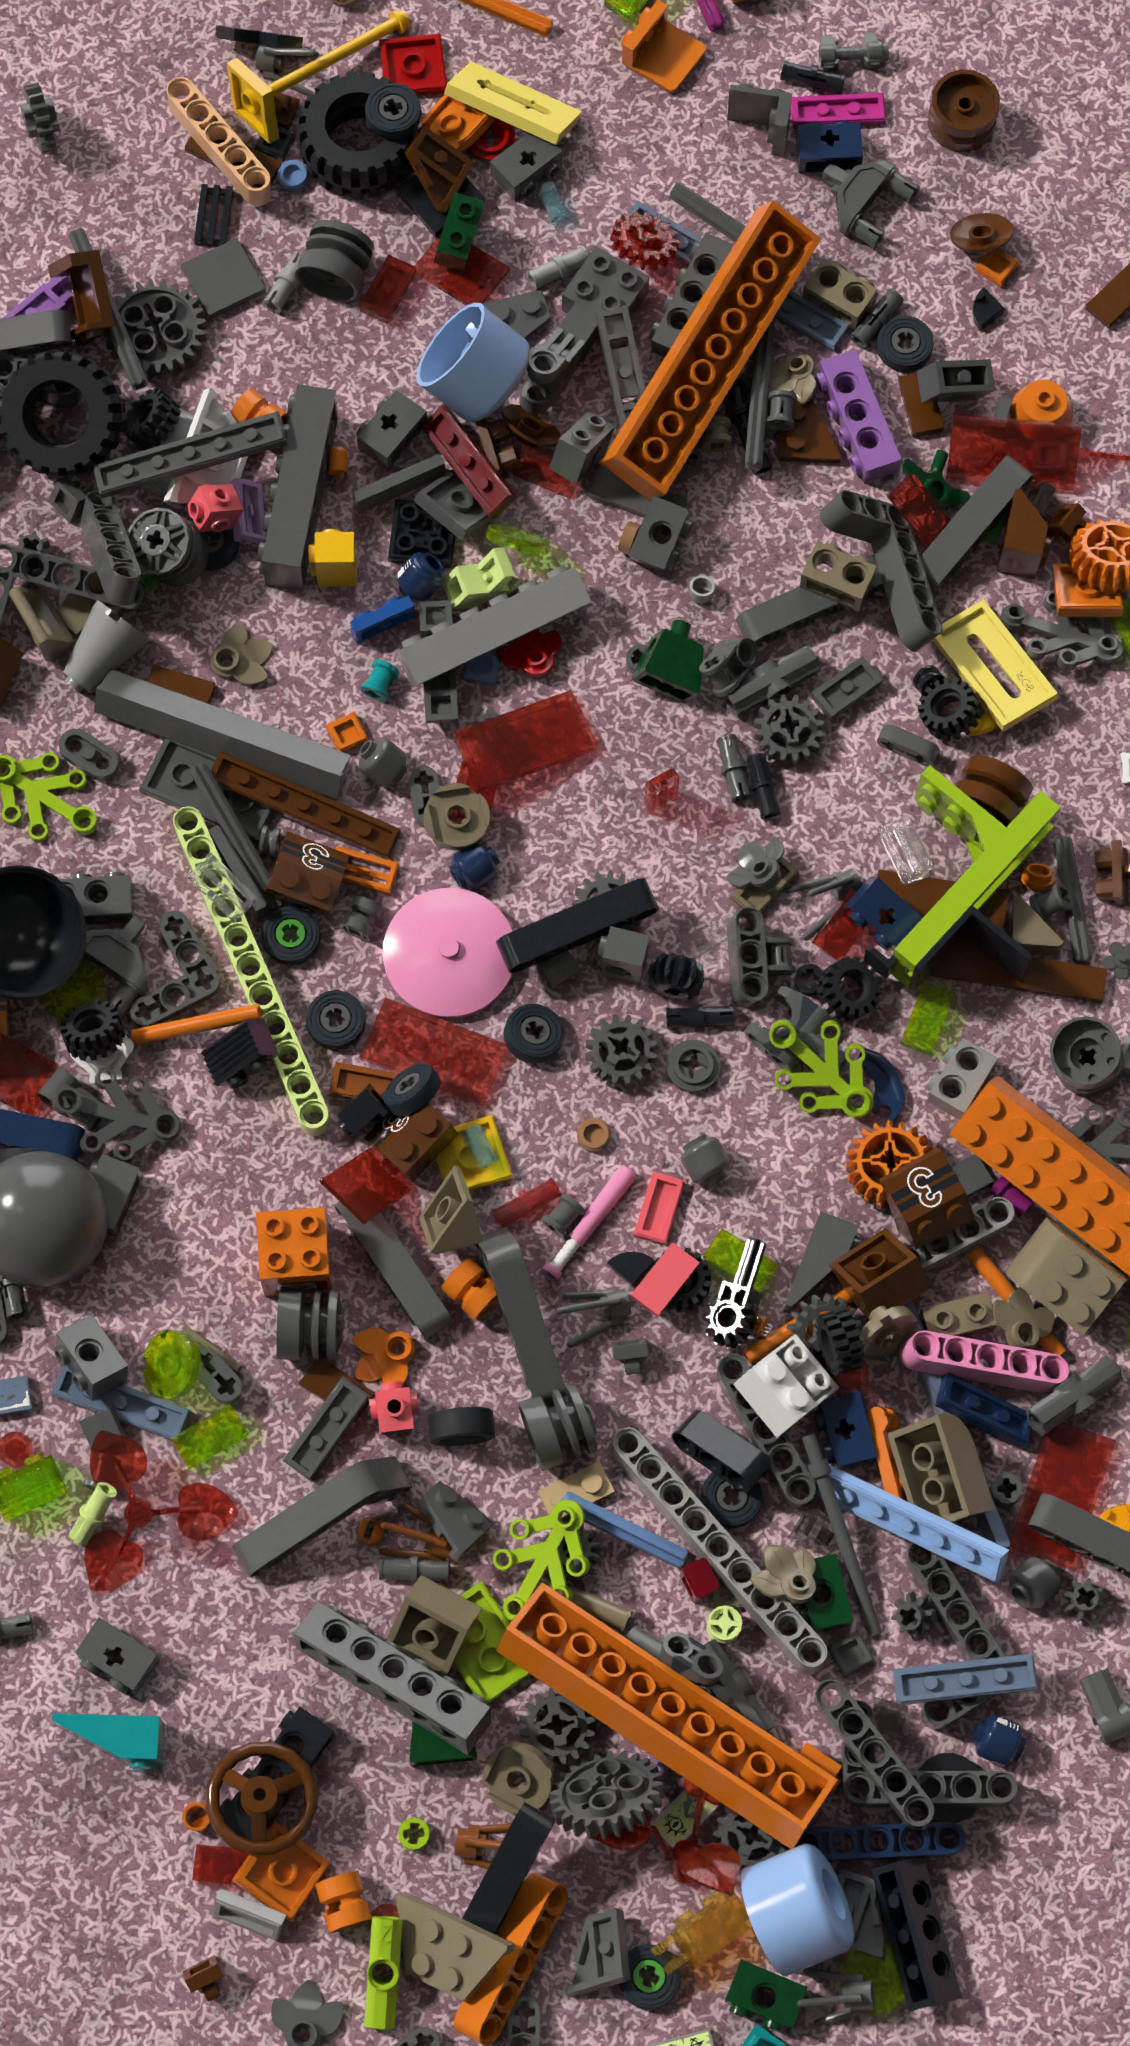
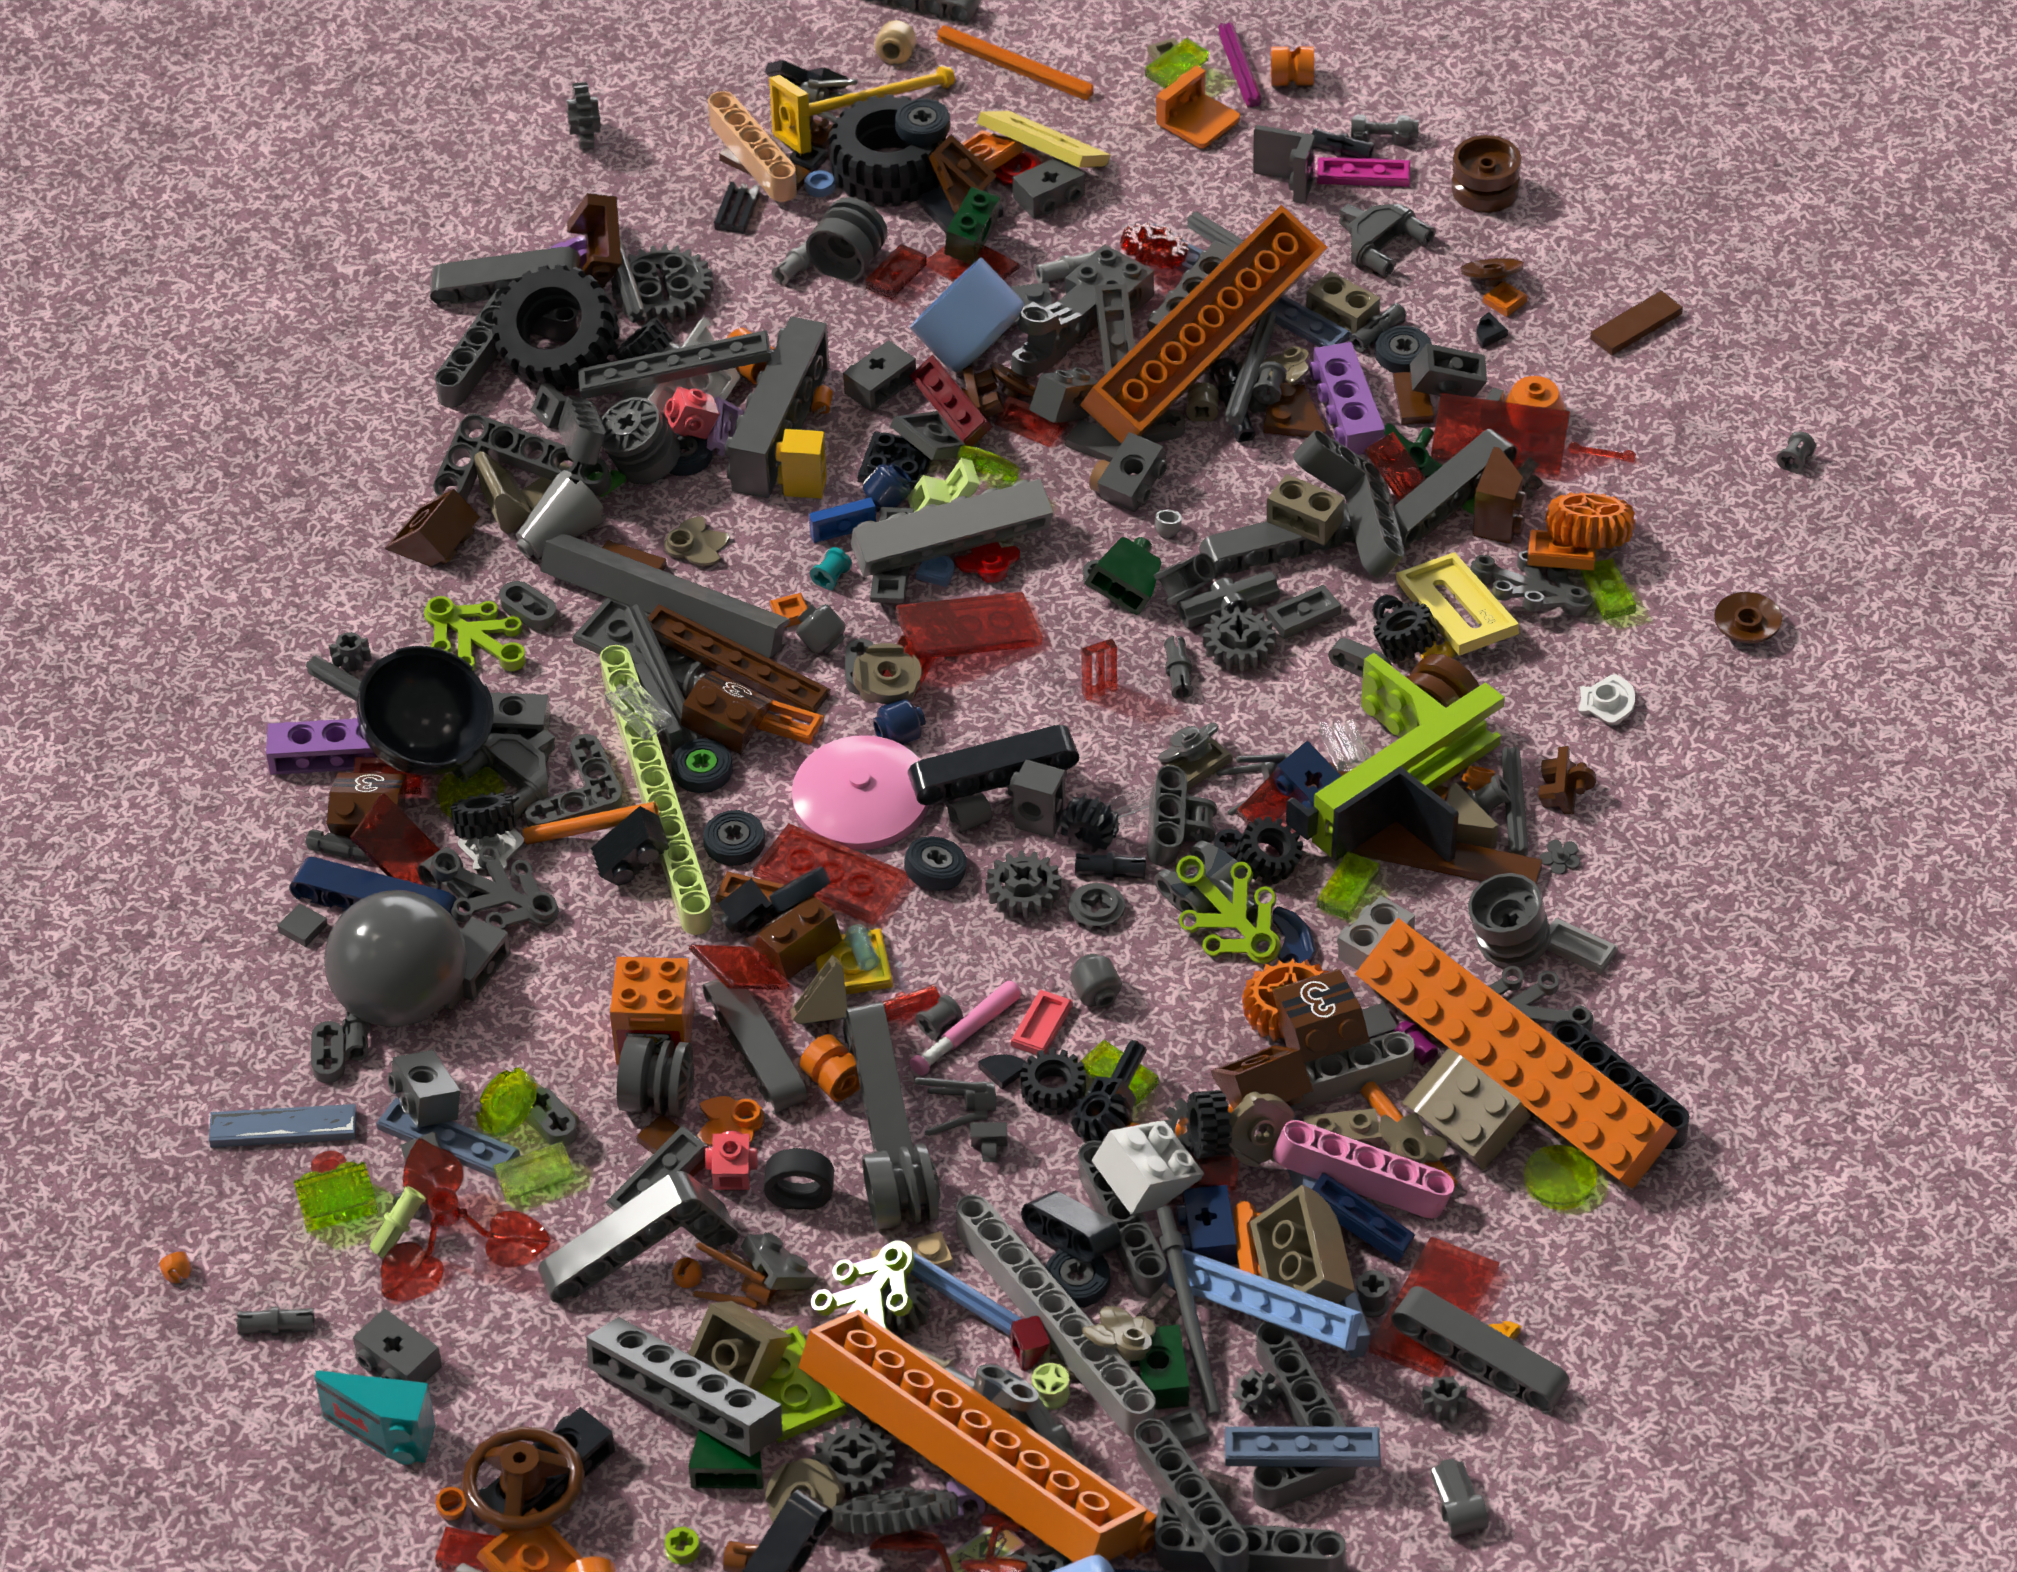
camera: 10 degrees right, 25 degrees down
(223, 278) = (736, 254): dark grey tile -> none
(362, 918) = (774, 757): dark grey wheel -> none
(398, 483) = (874, 417): dark grey tile -> none
(413, 1568) = (699, 1304): dark grey pin -> none
(415, 62) = (963, 106): red tile -> none
(550, 196) = (1068, 214): clear light blue pin -> none
(593, 1135) = (983, 956): medium nougat tile -> none
(665, 1279) = (1035, 1071): coral tile -> none
(763, 785) = (1206, 683): black axle -> none
(815, 155) = (1345, 188): dark blue brick -> none
(828, 1242) = (1211, 1052): dark grey slope -> none
(999, 1740) = (1334, 1512): dark blue head -> none
(1034, 1583) = (1393, 1378): dark grey head -> none
(1065, 520) = (1545, 495): reddish brown tile -> none
(1074, 1395) = (1458, 1214): dark grey piece -> none

